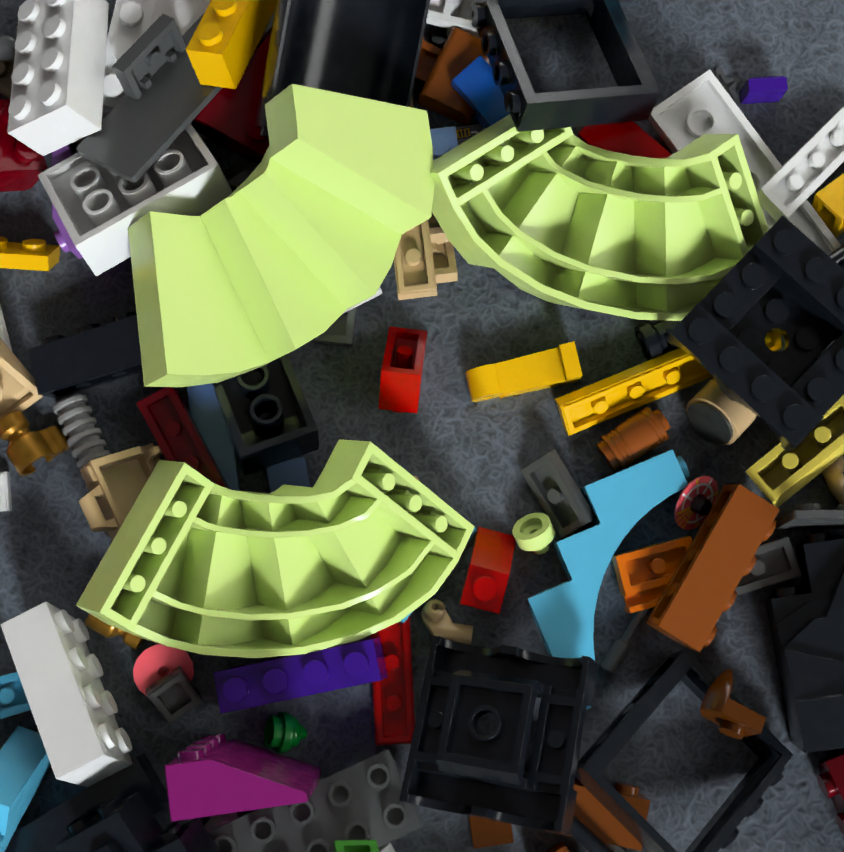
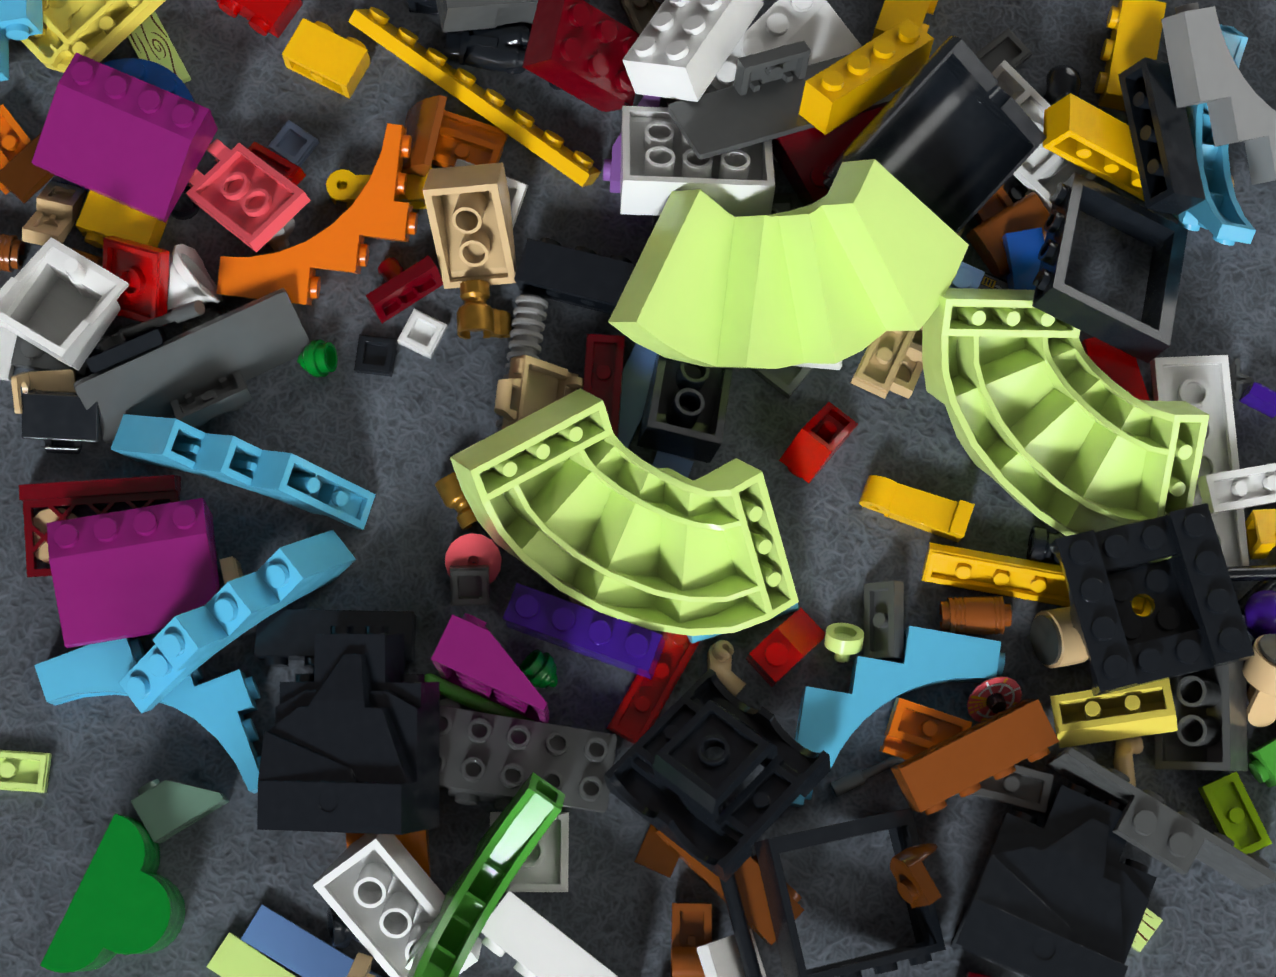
camera: 25 degrees right, 5 degrees down
(67, 695) = (394, 526): white brick -> none

